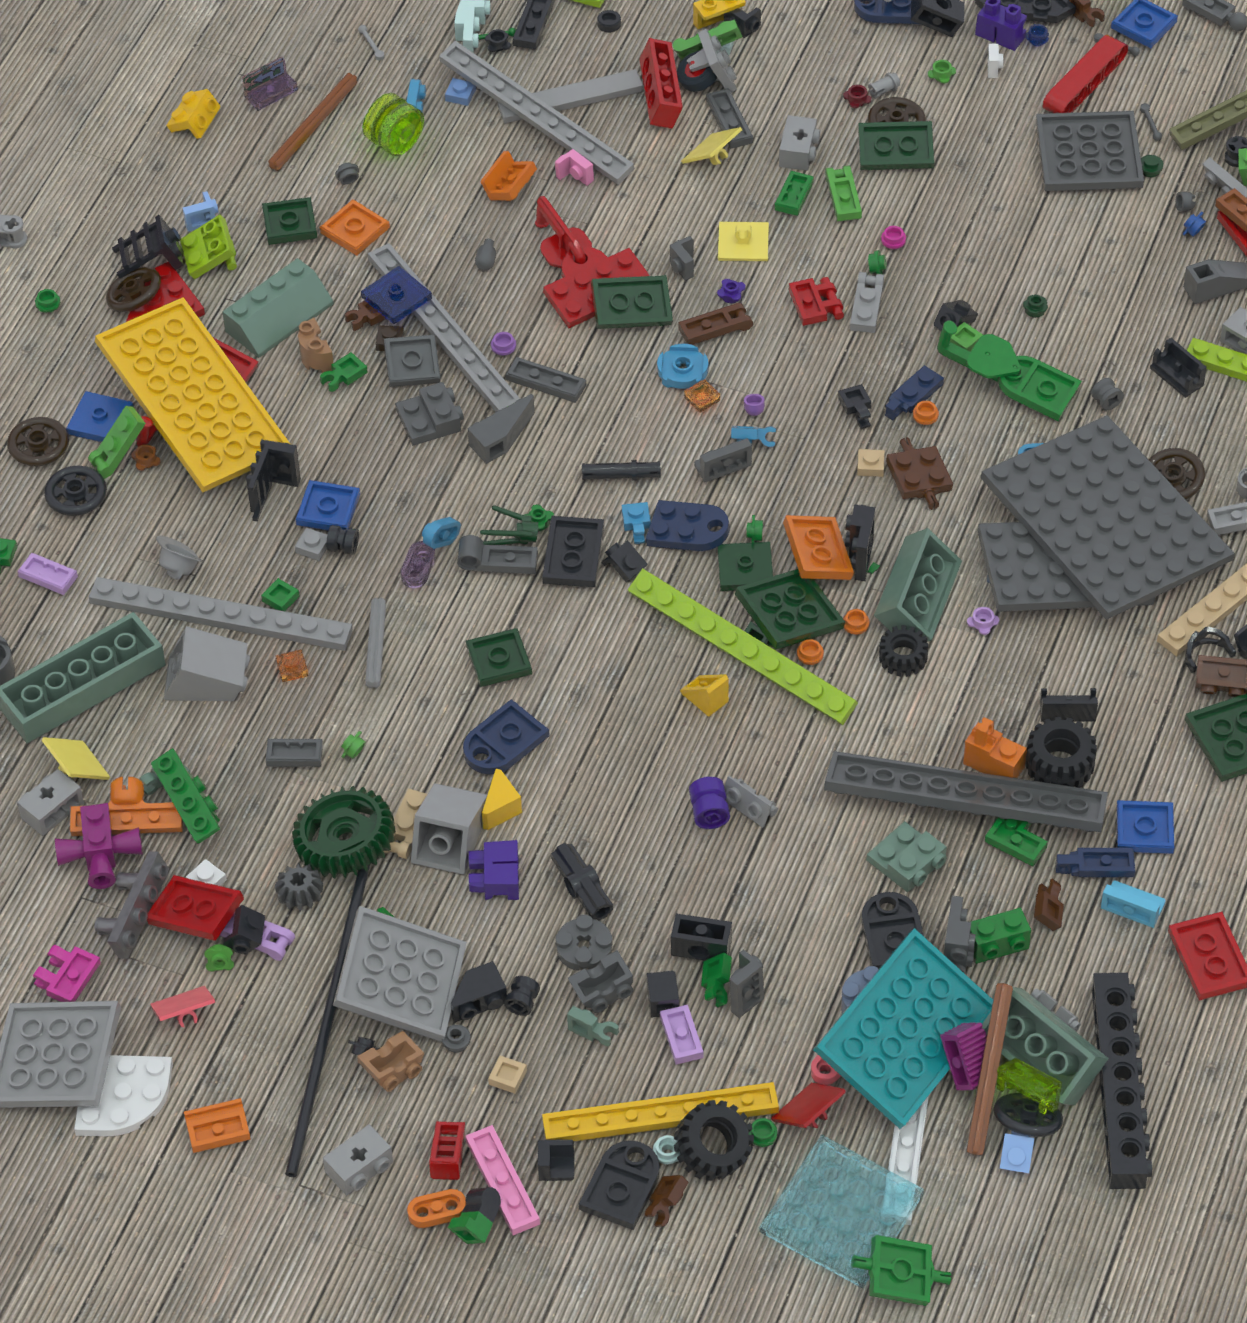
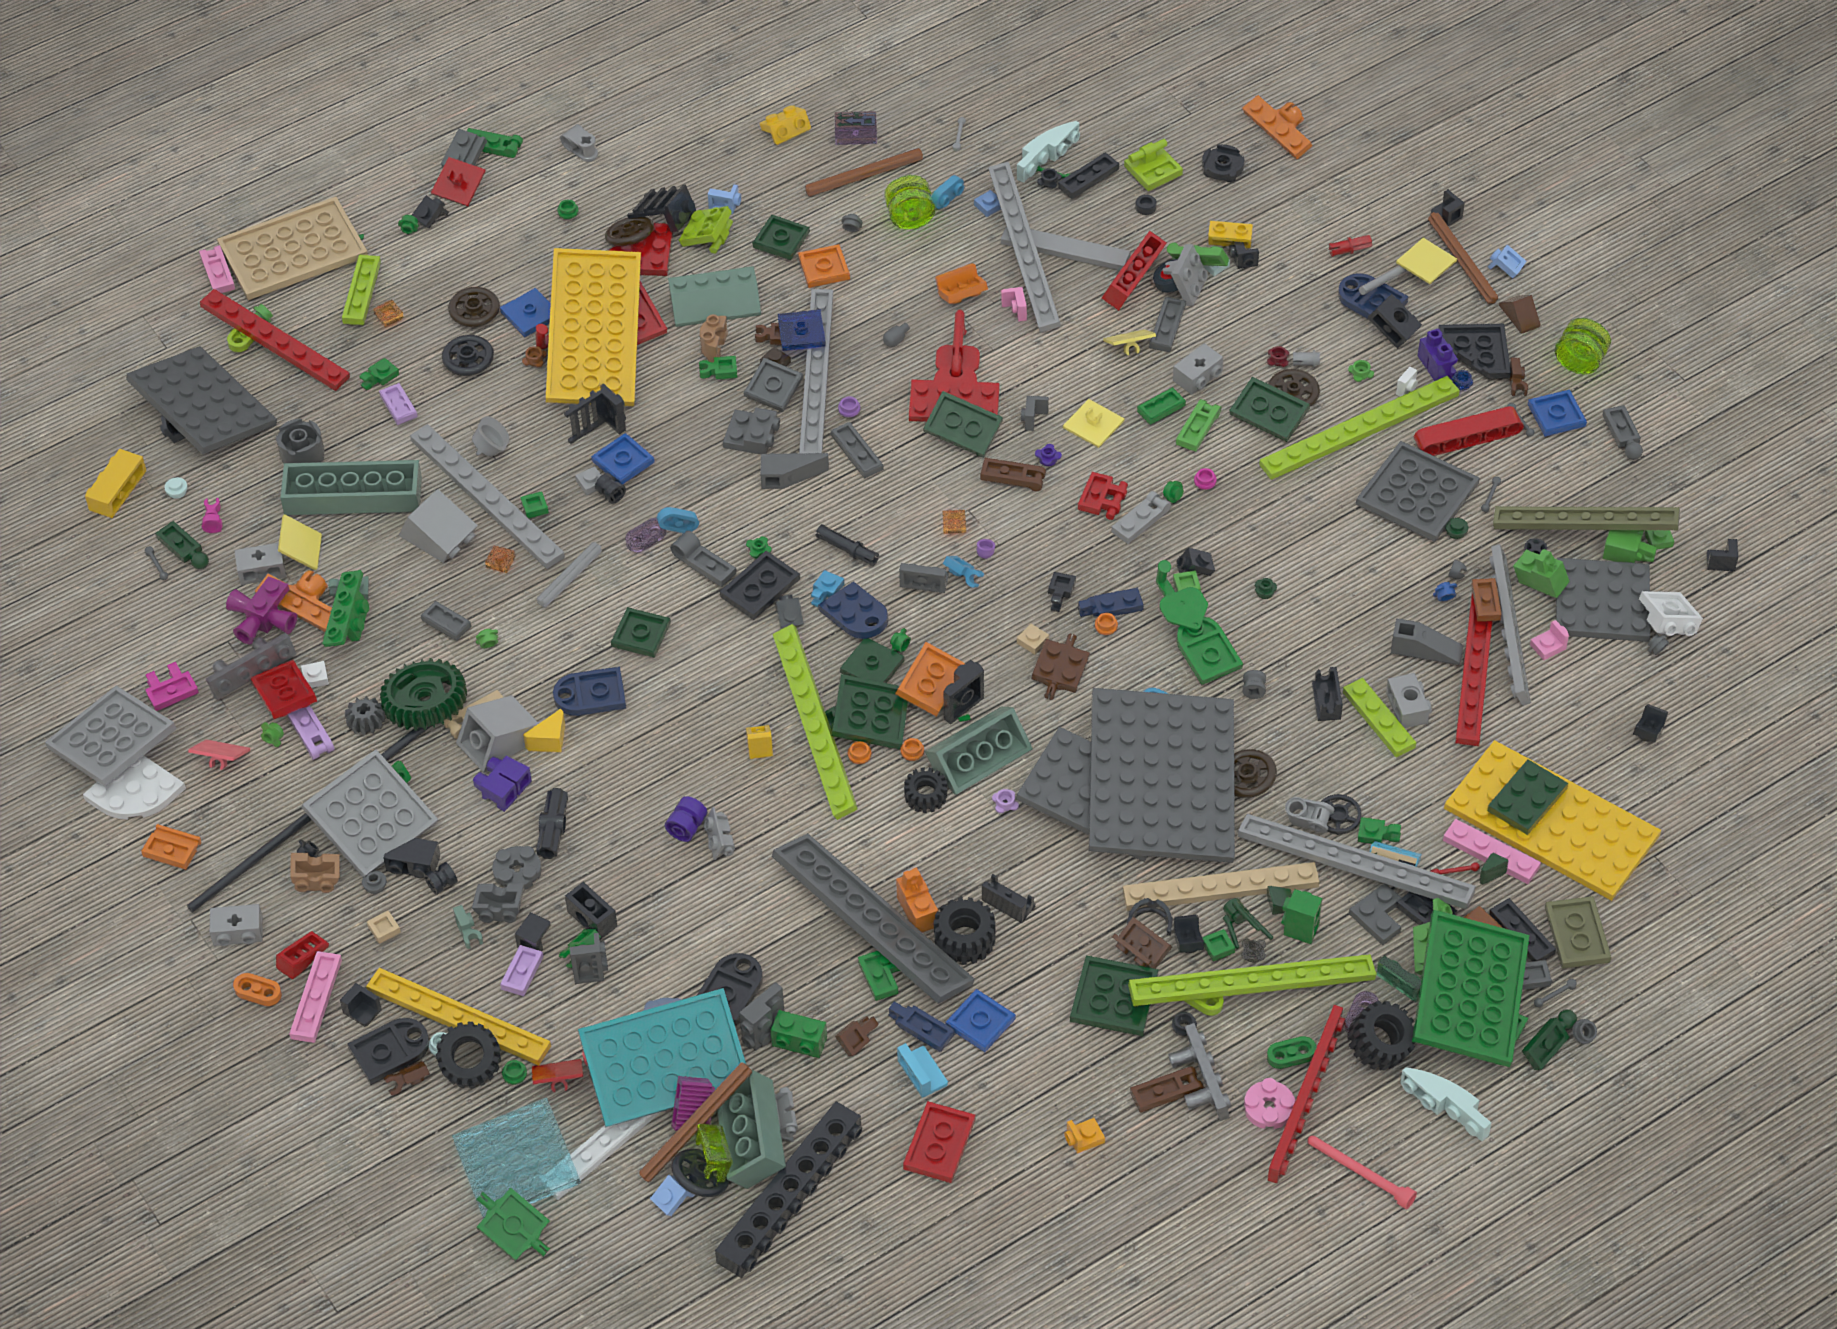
camera: 35 degrees right, 0 degrees up
(117, 441) = (516, 334): bright green plate -> none
(246, 930) = (299, 724): black bracket -> none
(477, 1215) = (275, 1010): leg -> none
(524, 532) = (736, 551): dark green plant -> none
(682, 377) = (967, 482): dark azure plate -> none
(908, 856) = (792, 940): sand green plate -> none
(984, 123) = (1359, 427): none -> lime plate

